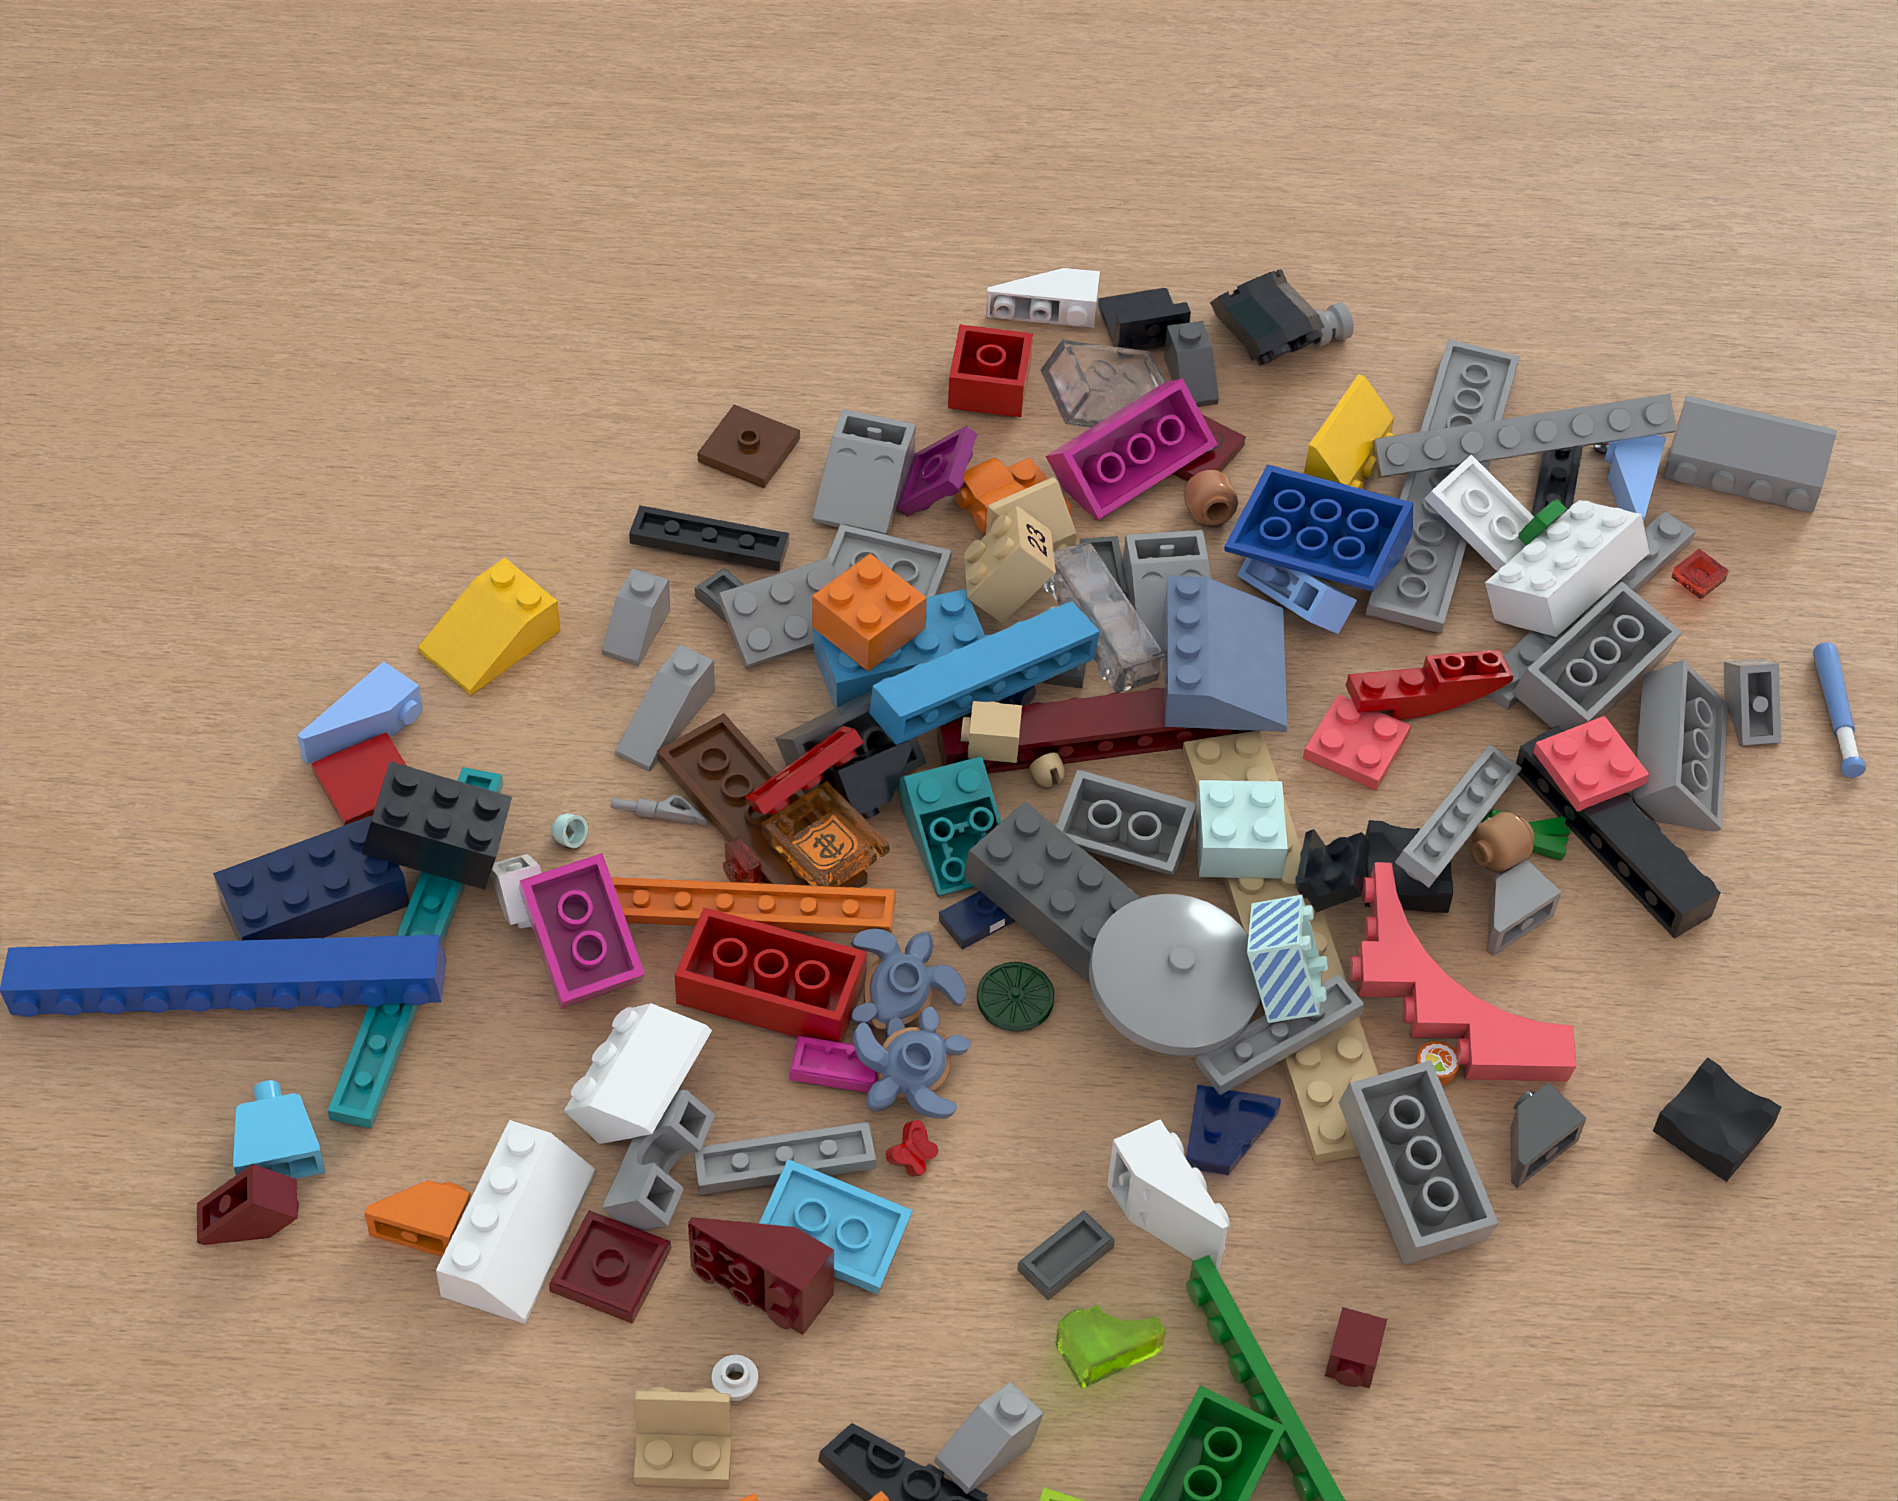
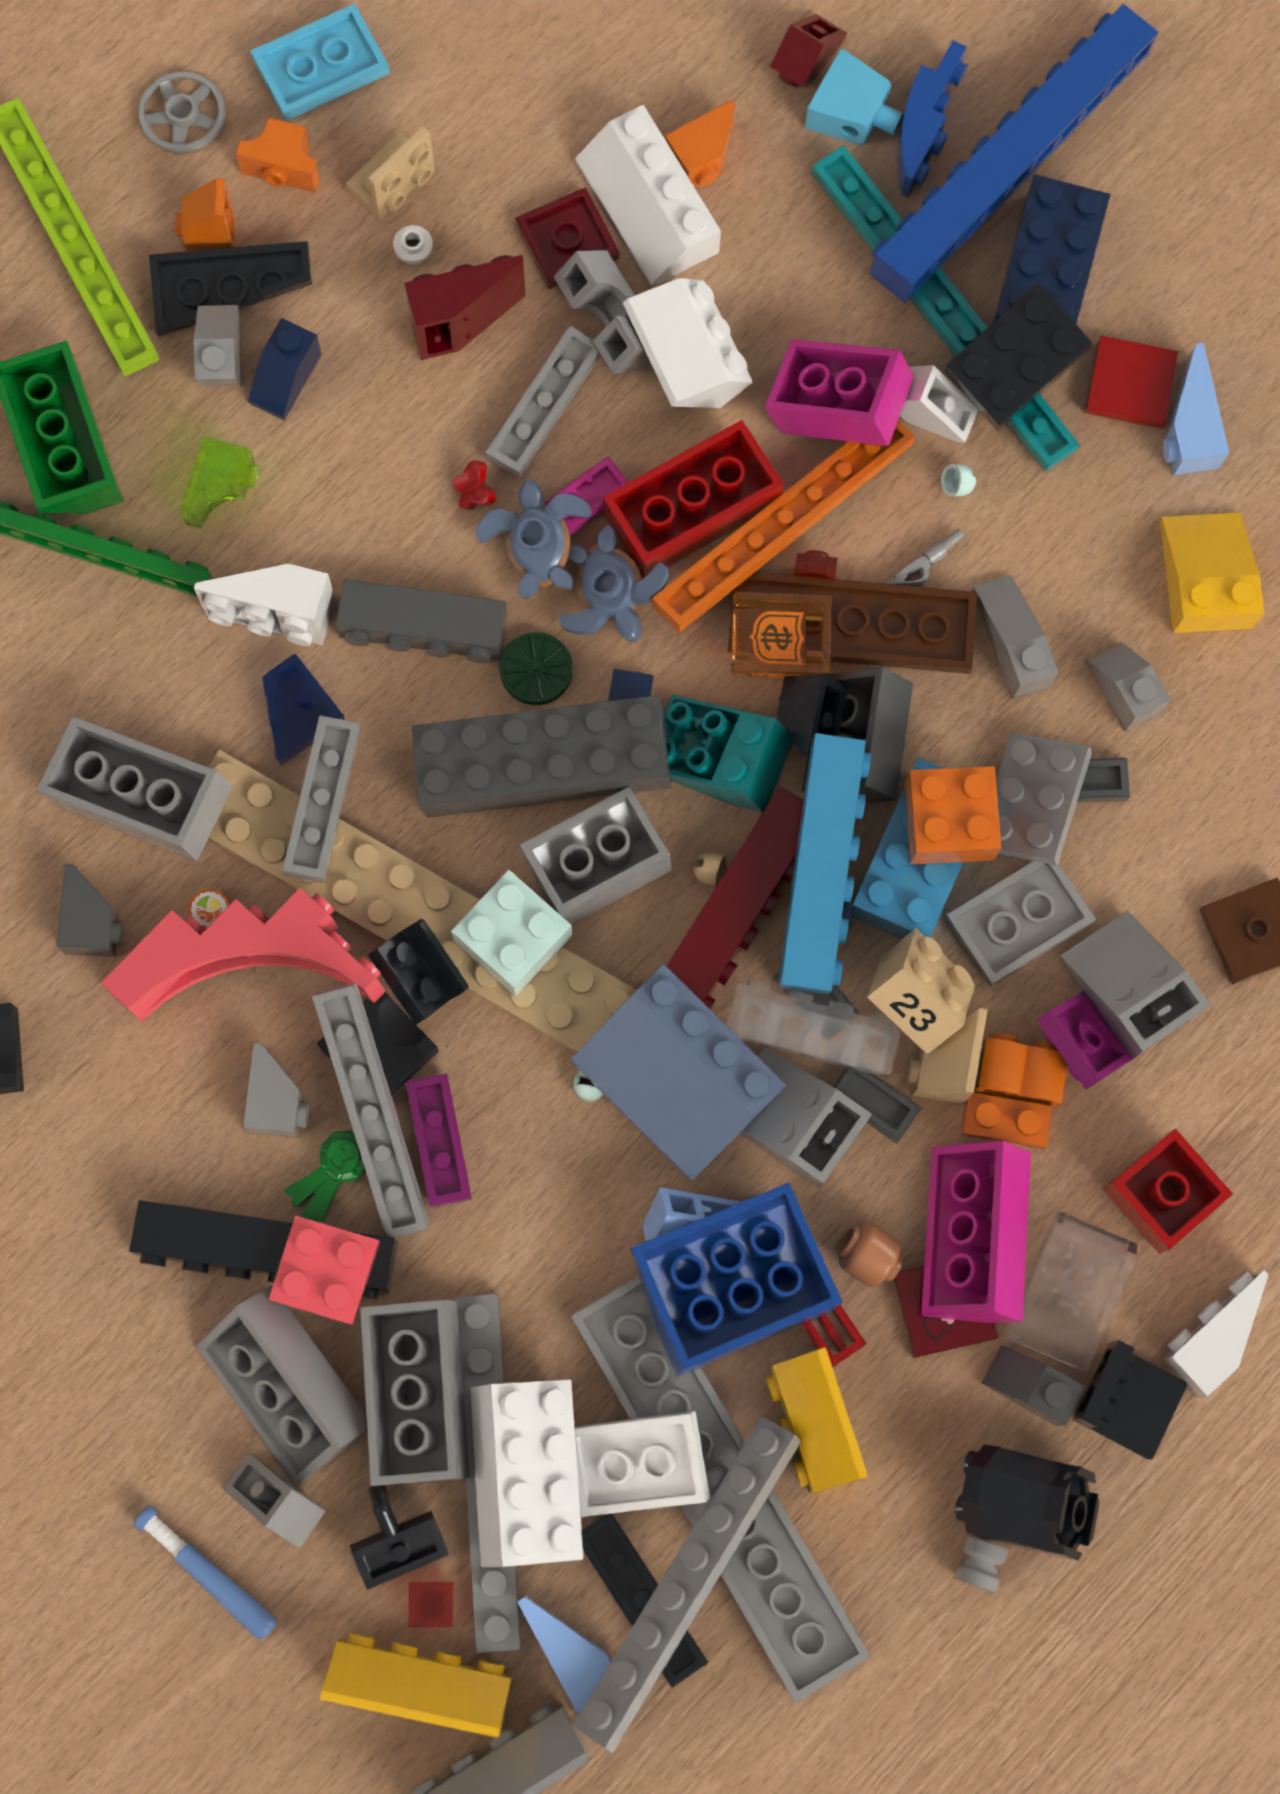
camera: 130 degrees right, 25 degrees up
(227, 1083) = (925, 118): none -> blue slope
(709, 538) = (1171, 810): black plate -> none
(805, 771) = (848, 656): red plate -> none
(844, 1217) = (460, 382): medium azure plate -> none
(951, 1375) = (284, 368): none -> dark blue slope
(993, 731) = (762, 823): tan brick -> none
(1060, 1092) = (421, 620): none -> dark grey brick
(1065, 1255) = (307, 522): dark grey tile -> none
(1174, 974) = (424, 752): light grey dish -> none
(1278, 741) = (585, 1092): none -> light aqua hinge
(1286, 958) = (357, 828): light aqua container -> none
(1355, 1348) = (60, 632): dark red brick -> none
(1356, 743) = (530, 1137): coral plate -> none
(1425, 784) = (438, 1140): none -> magenta plate
(1438, 686) = (523, 1239): red slope -> none
(1502, 842) = (321, 1123): medium nougat head -> none
(1541, 521) = (587, 1497): green tile -> none
(1691, 612) = (398, 1546): none -> black plate
(1757, 532) = (417, 1686): none -> yellow slope

